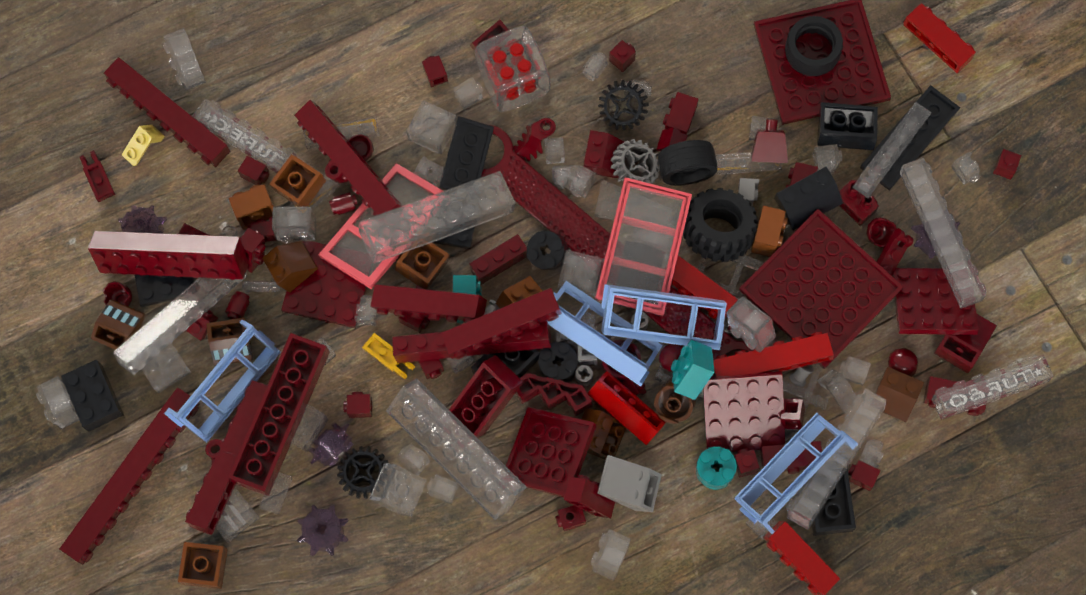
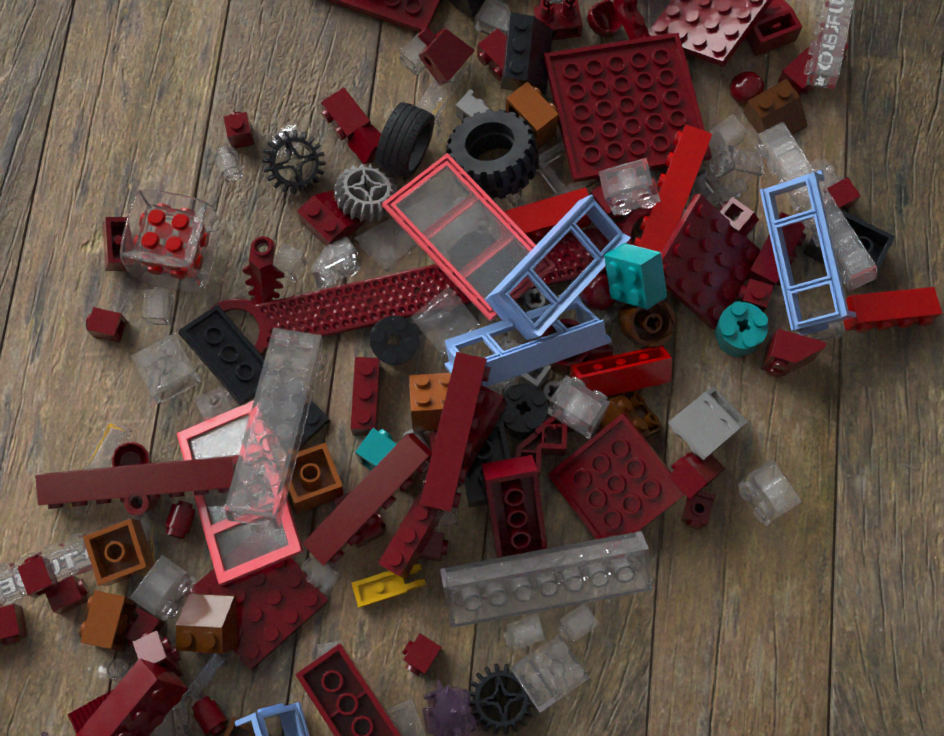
camera: 60 degrees left, 0 degrees up
(251, 146) = (38, 576): none -> dark red brick
(577, 386) = (578, 406): none -> clear brick
(719, 509) = (789, 352): none -> dark red slope

